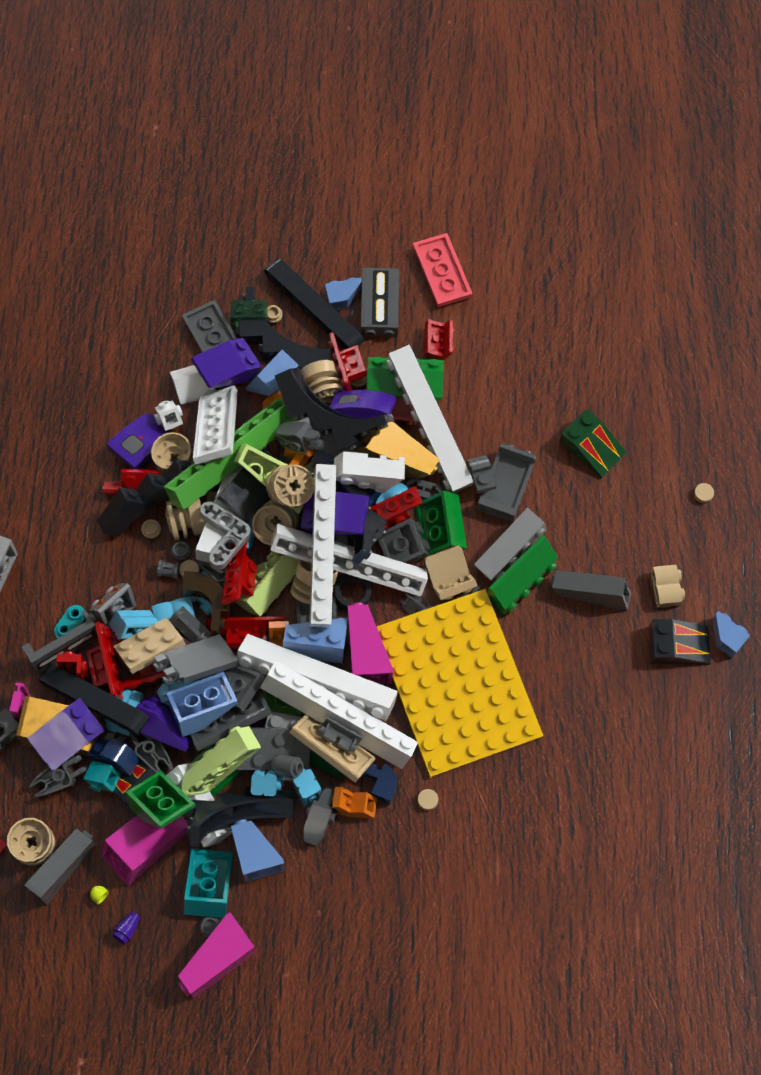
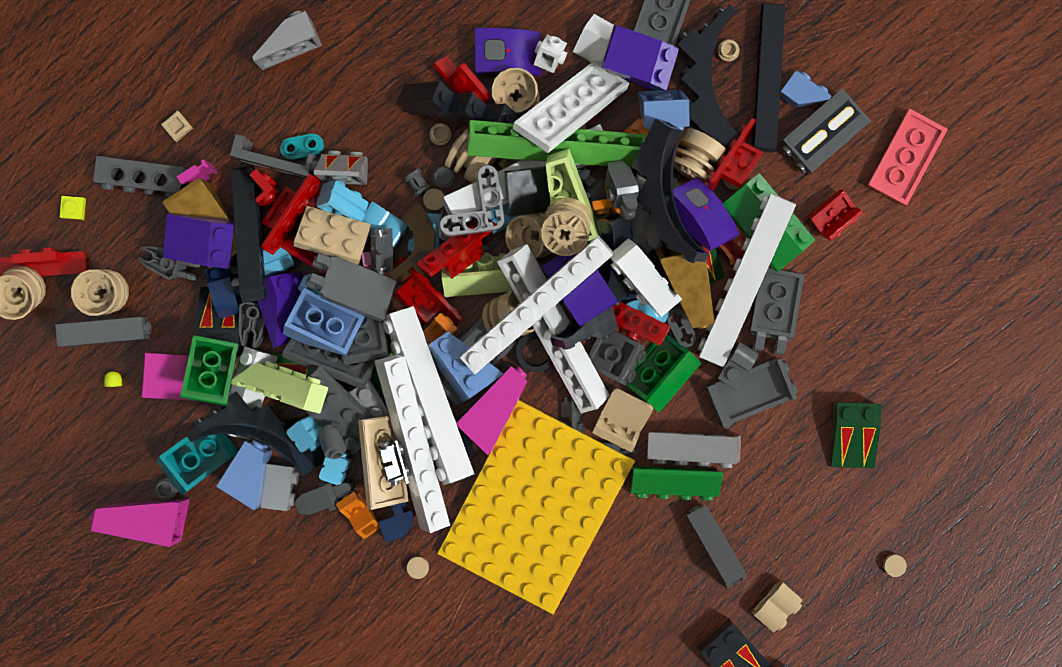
camera: 45 degrees right, 20 degrees up
(102, 777) = (197, 297): teal brick -> none
(125, 929) = (106, 426): dark purple cone -> none
(247, 310) = (709, 28): clear green bracket -> none
(284, 842) = (279, 486): none -> light grey brick
(468, 423) = (776, 309): none -> dark grey tile

